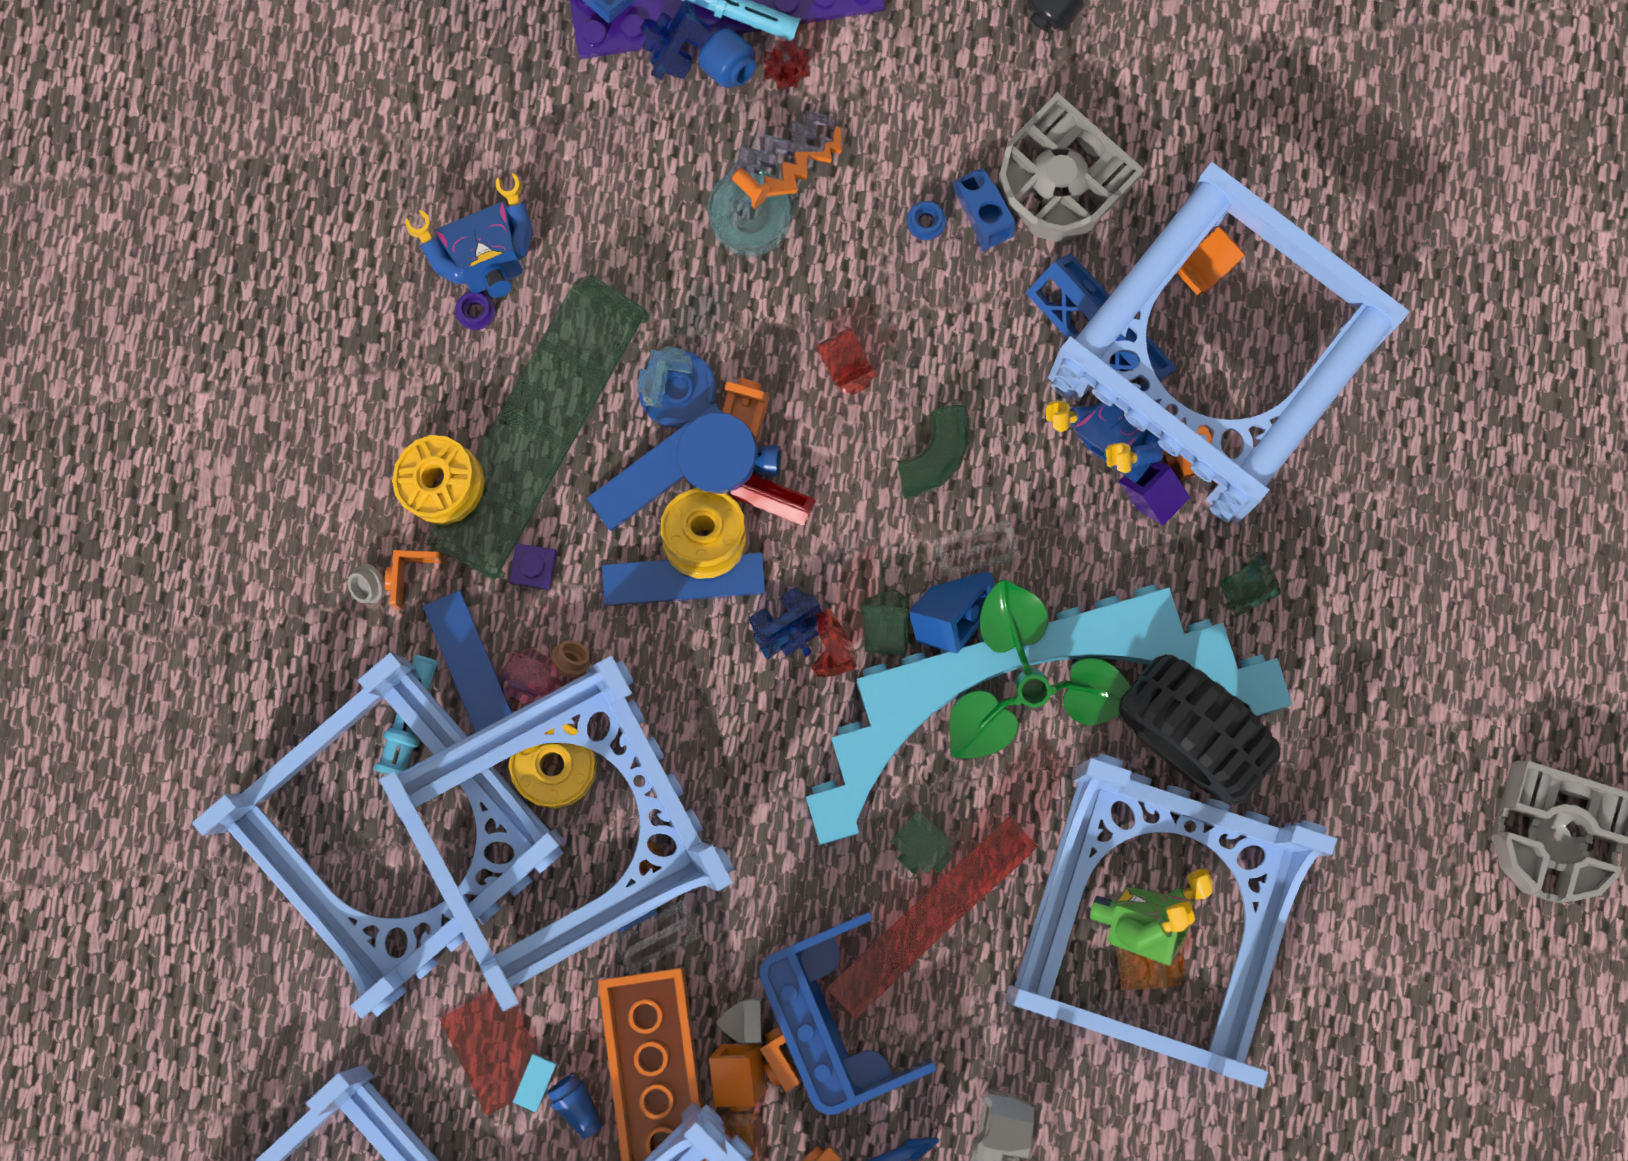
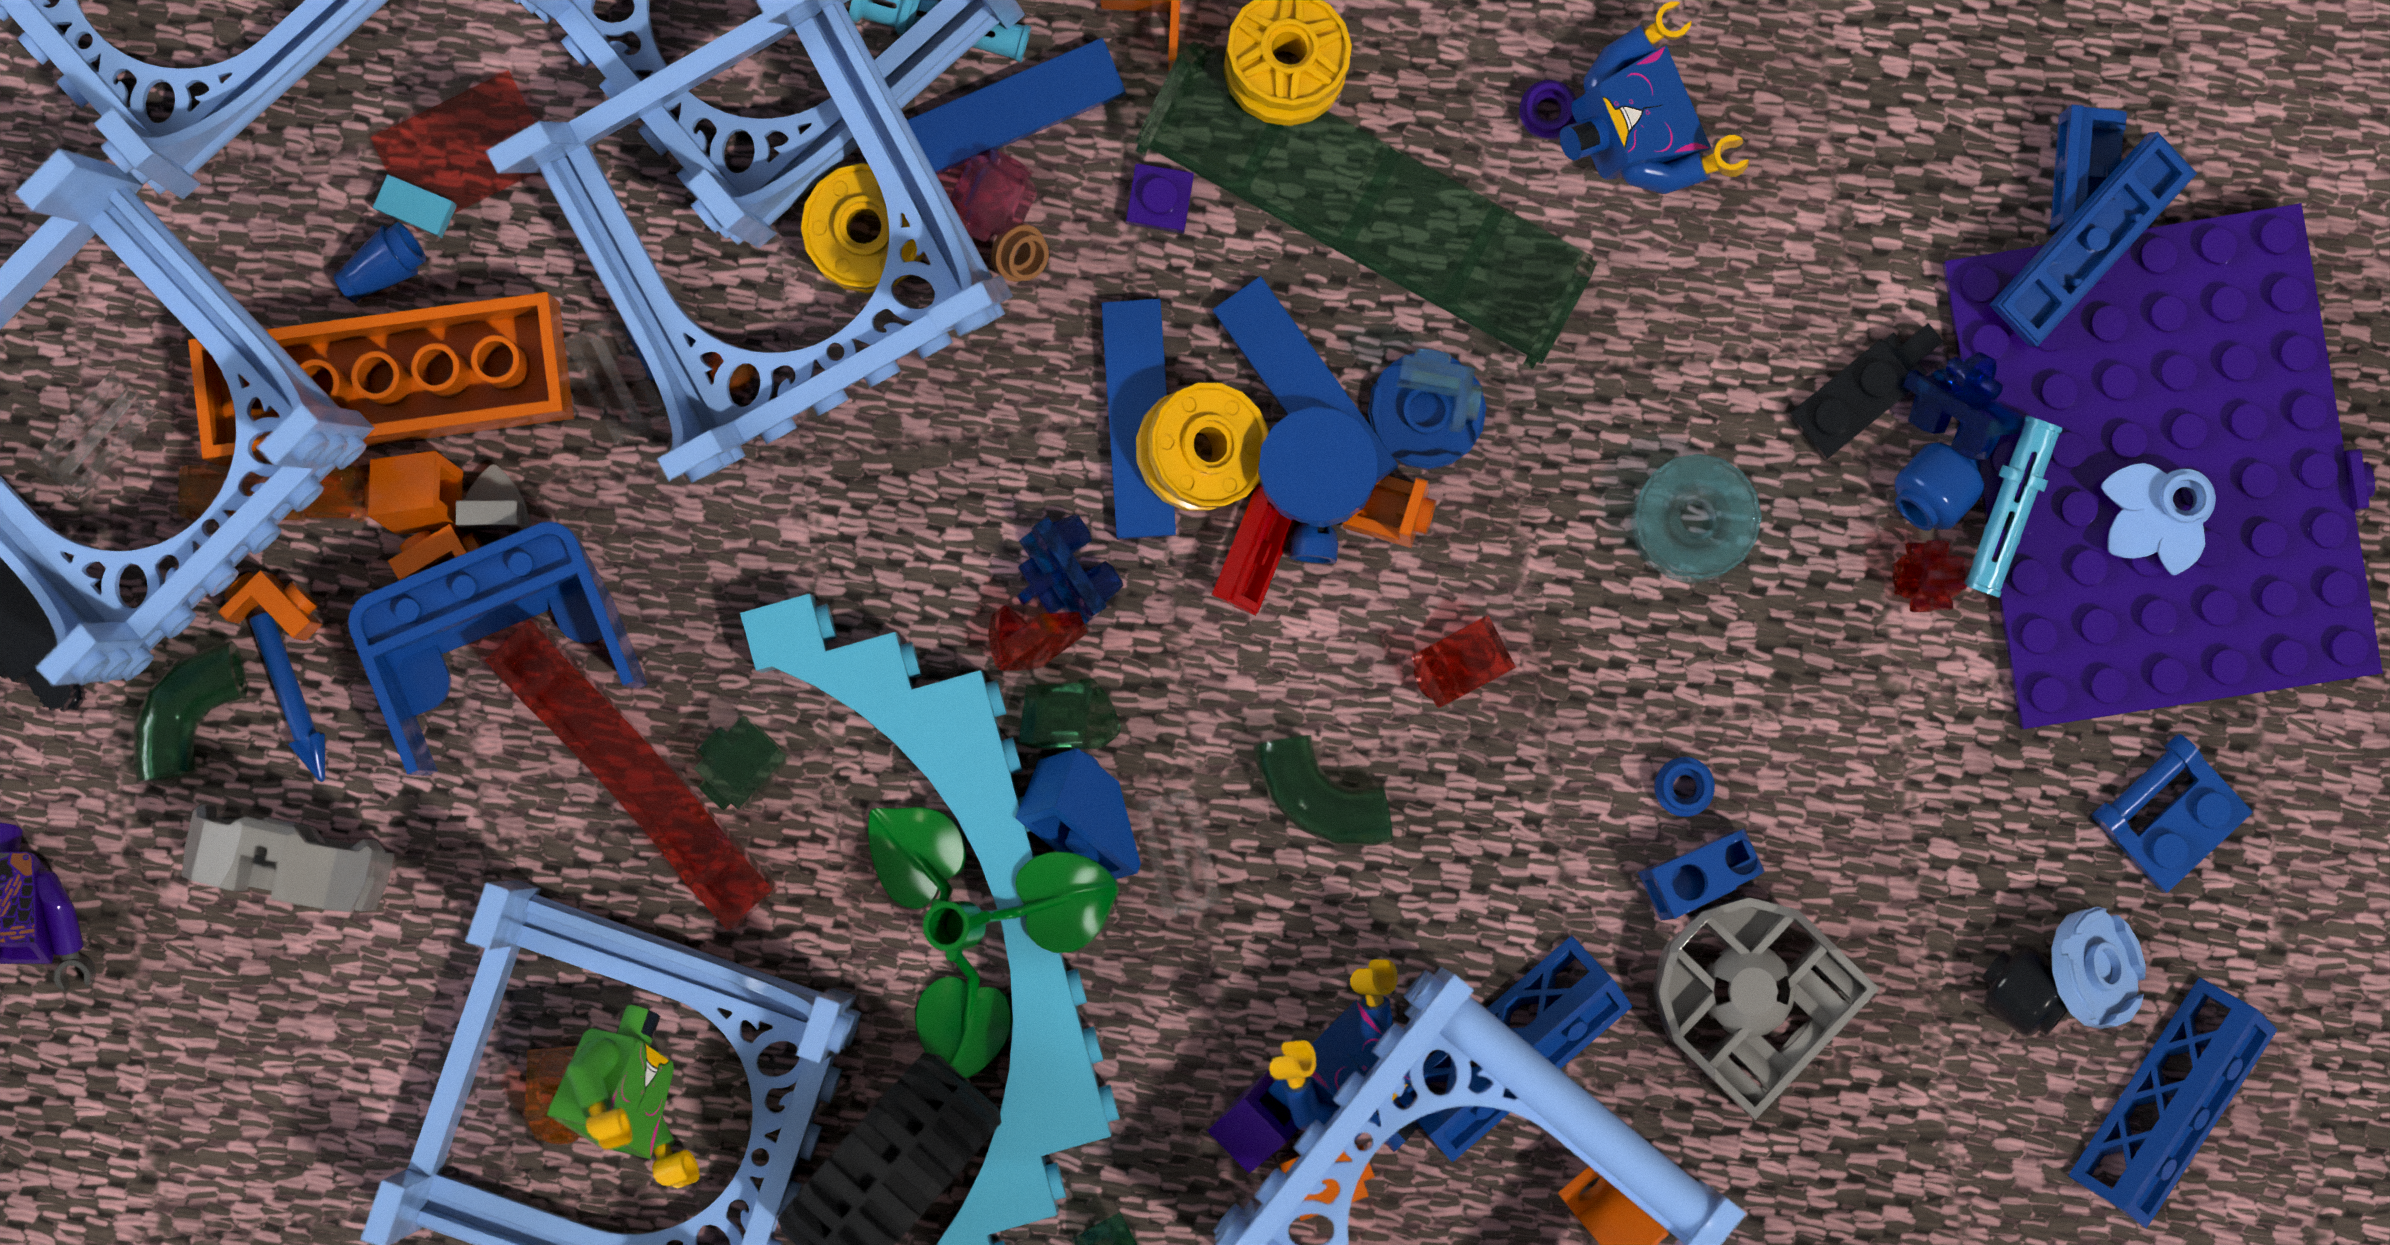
camera: 85 degrees right, 5 degrees up
(663, 108) = (1862, 391): none -> black hinge
(750, 158) = (1795, 591): piece -> none

